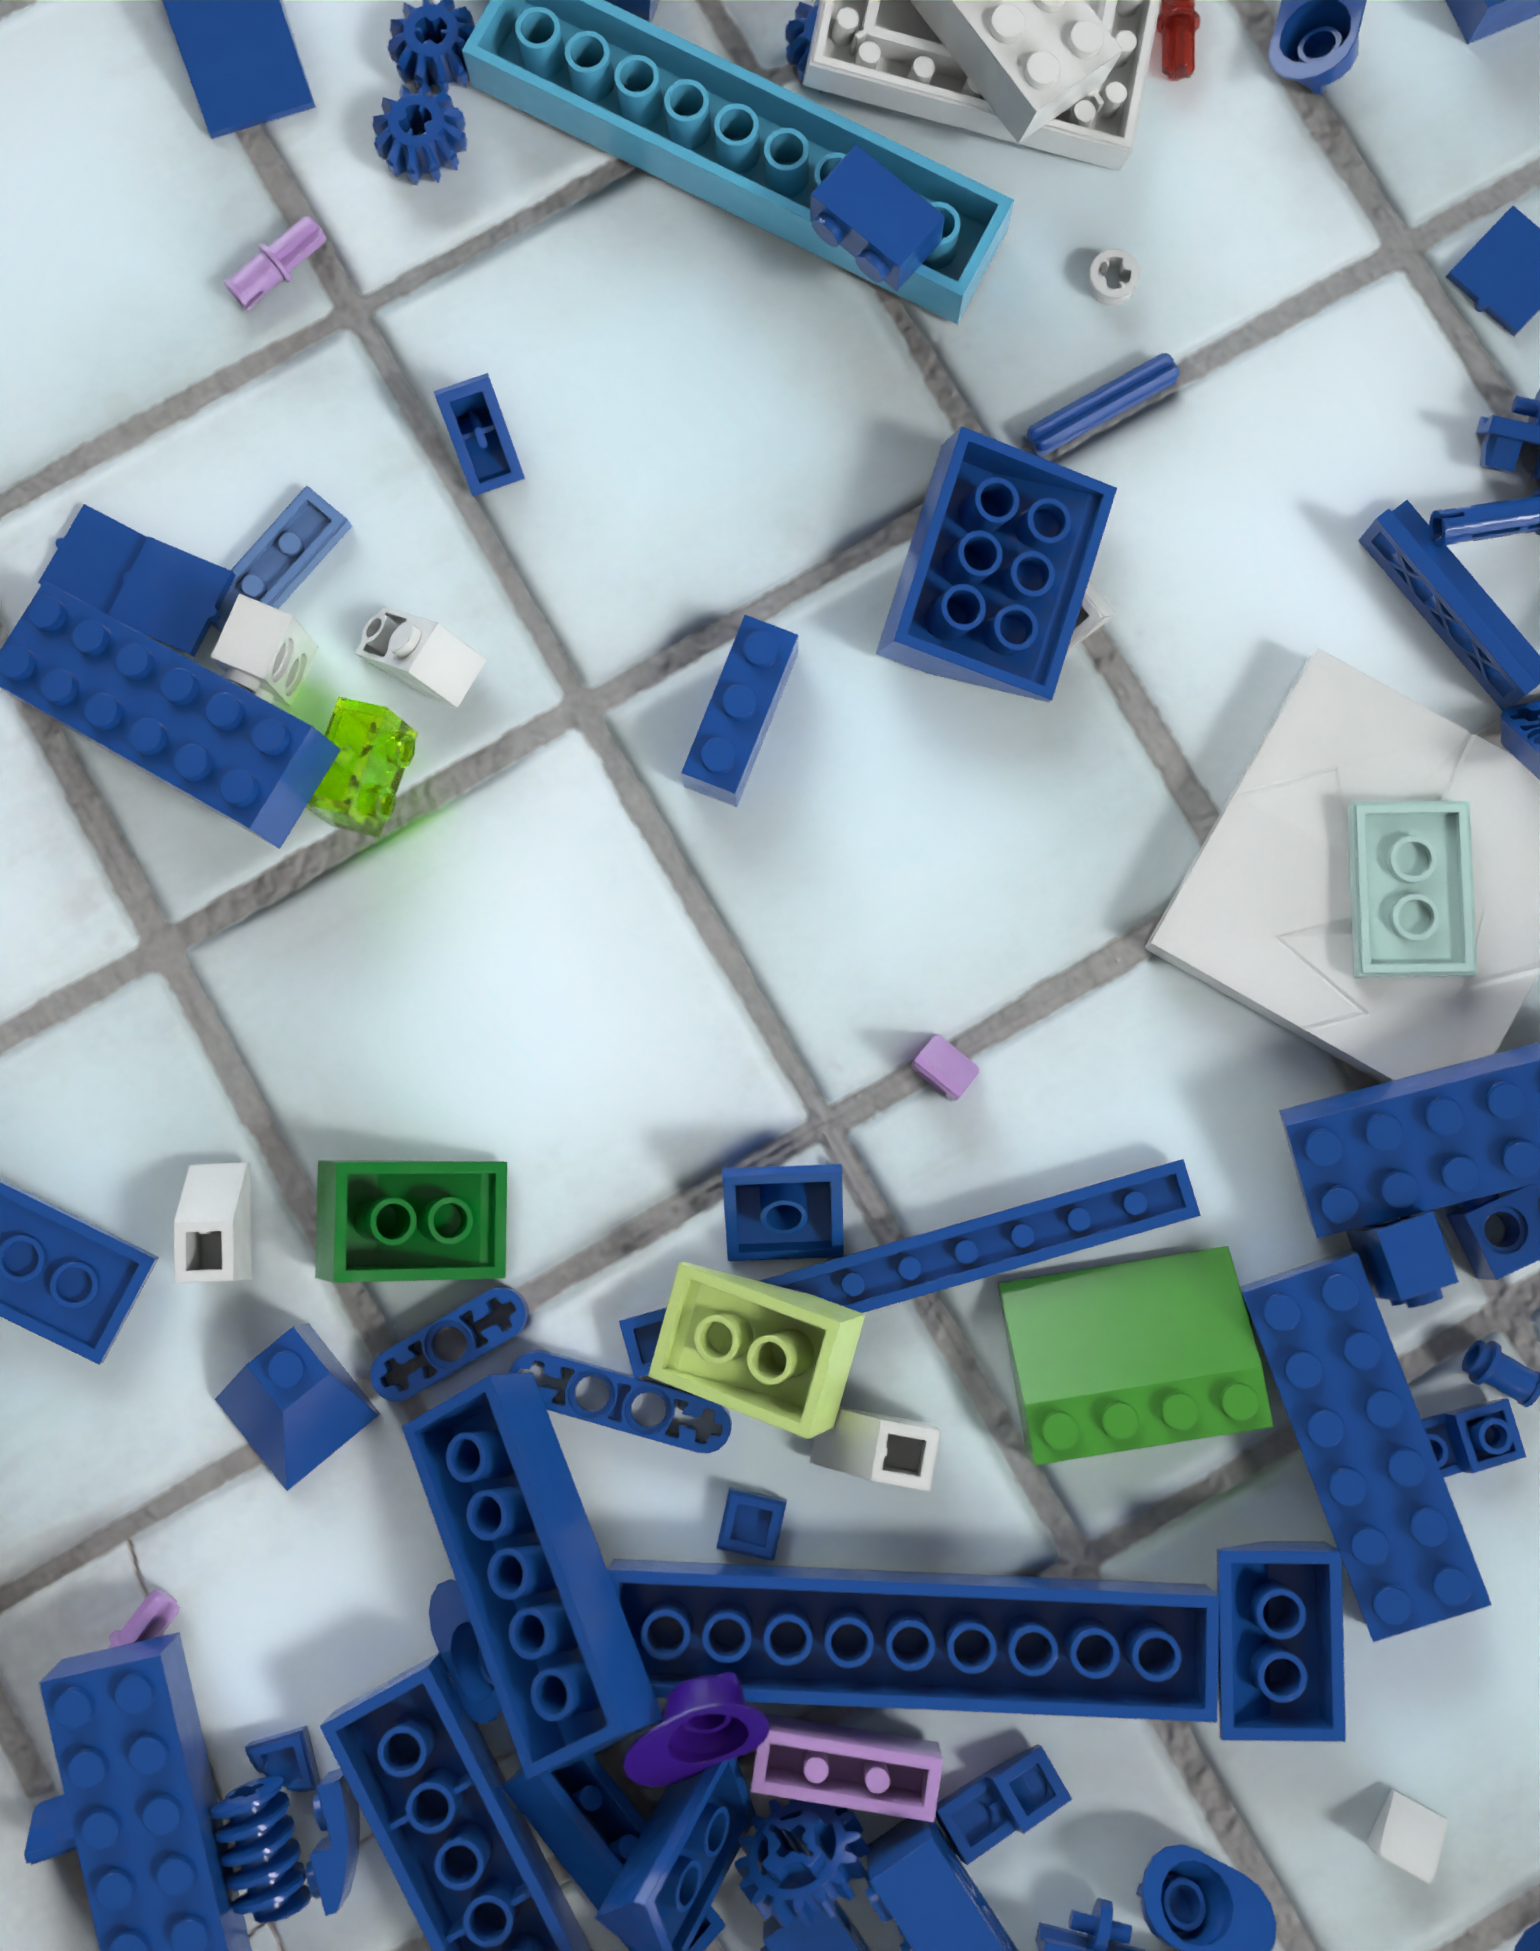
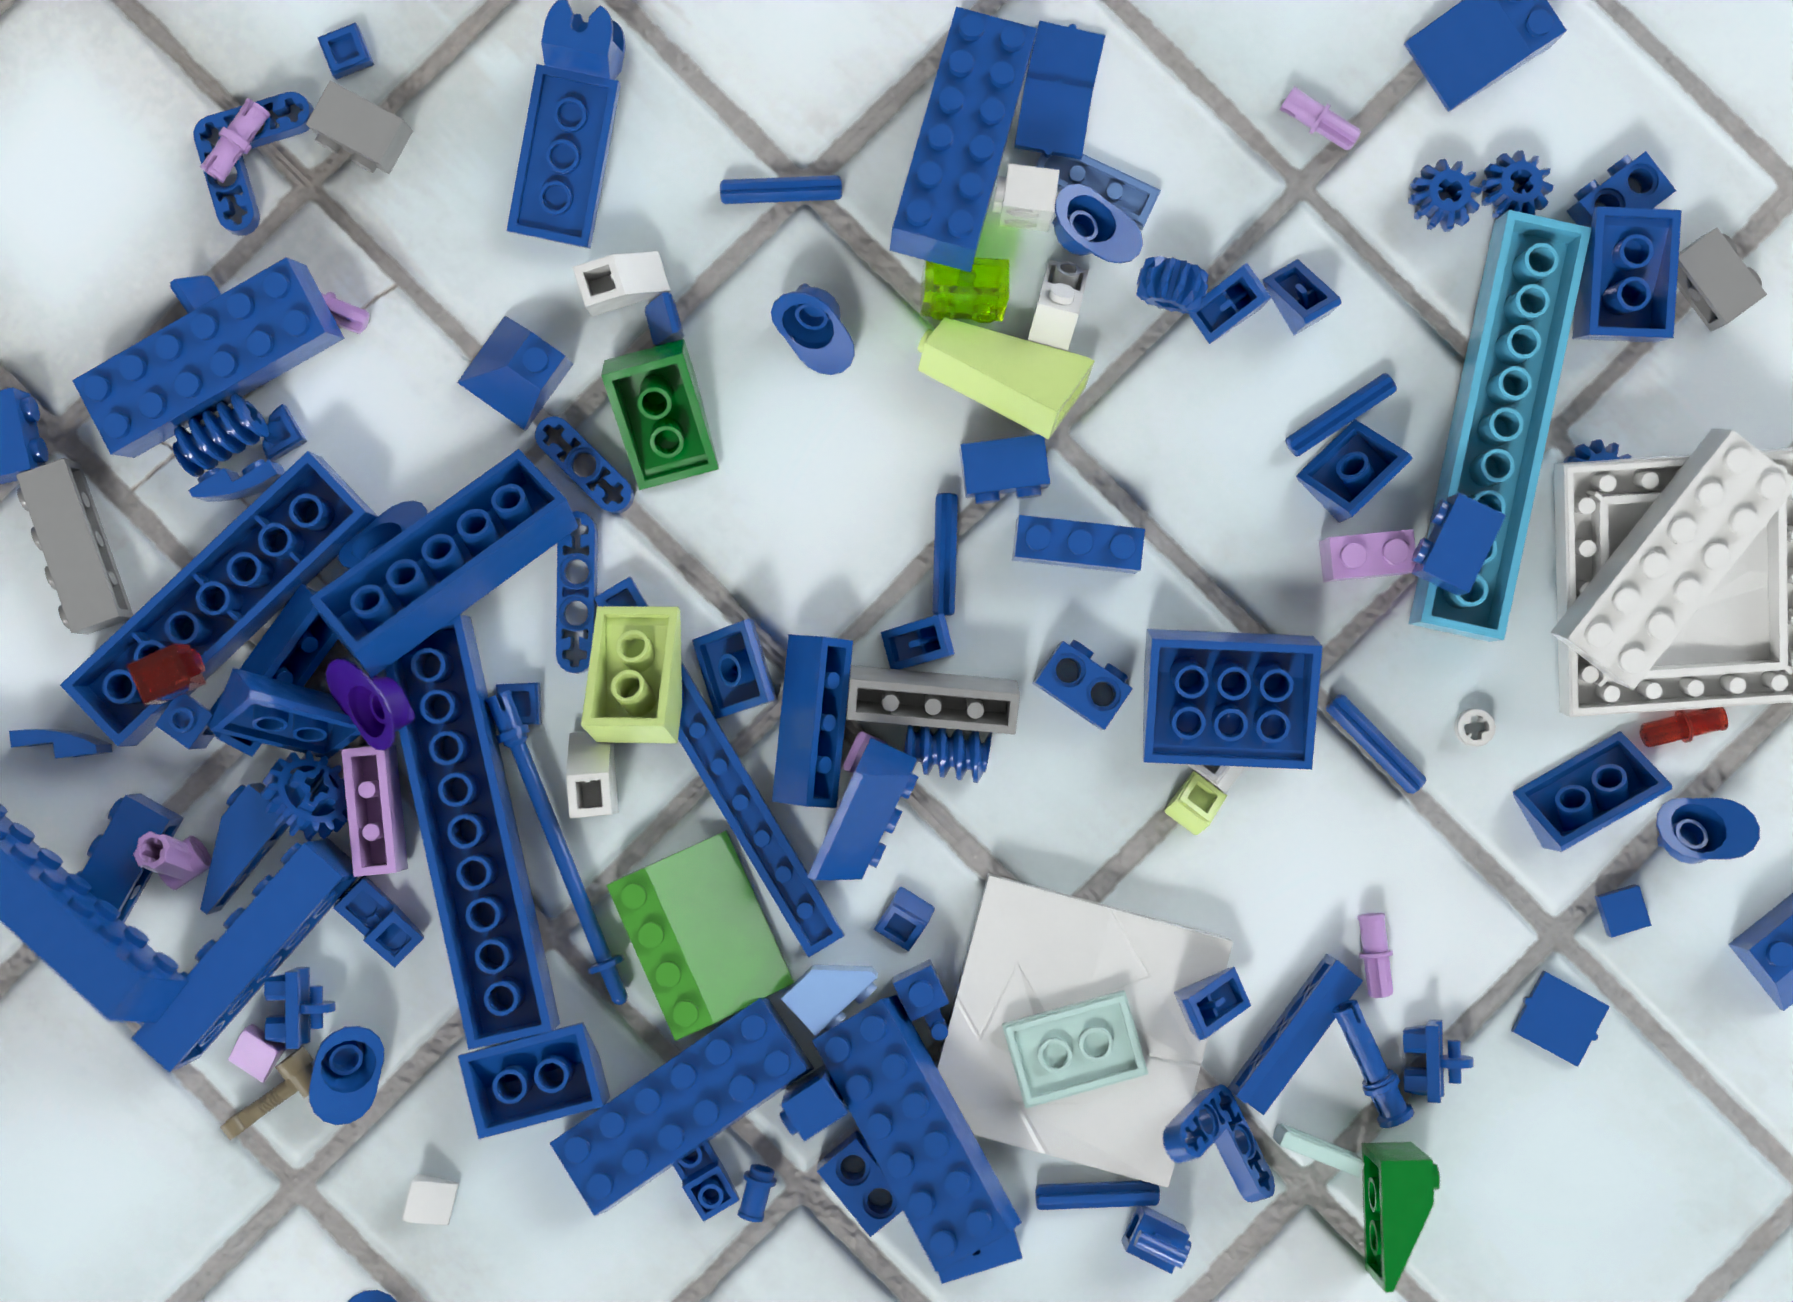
camera: 70 degrees right, 5 degrees up
(156, 978) = (781, 189): none -> blue axle
(284, 1182) = (663, 320): none -> blue slope
(329, 578) = (1094, 226): none -> piece
(357, 981) = (813, 329): none -> blue piece
(433, 498) = (1172, 284): none -> blue gear
(486, 745) = (1006, 373): none -> yellowish green slope
(497, 342) = (1300, 296): none -> blue slope
(612, 780) = (1004, 467): none -> blue brick
(664, 337) = (1341, 414): none -> blue axle
(705, 890) = (945, 553): none -> blue axle
(742, 337) = (1352, 470): none -> blue slope
(795, 1540) = (514, 736): none -> blue bar
(814, 954) = (918, 642): none -> blue slope
(856, 347) = (1367, 555): none -> lavender brick
(883, 1123) = (812, 721): none -> blue brick
(896, 954) = (933, 699): none -> light grey brick
(937, 763) = (1077, 693): none -> blue brick
(969, 955) = (948, 751): none -> blue piece
(1027, 1083) = (865, 814): none -> blue slope
(1121, 653) = (1195, 803): none -> yellowish green slope
(1178, 1073) = (905, 918): none -> blue slope
(1236, 154) = (1589, 792): none -> blue slope
(1252, 1202) = (826, 991): none -> light blue slope
(1291, 1073) = (923, 996): none -> blue brick
(1376, 475) = (1375, 954): none -> lavender axle
(1394, 157) = (1623, 910): none -> blue tile
(1395, 694) = (1212, 1002): none -> blue slope

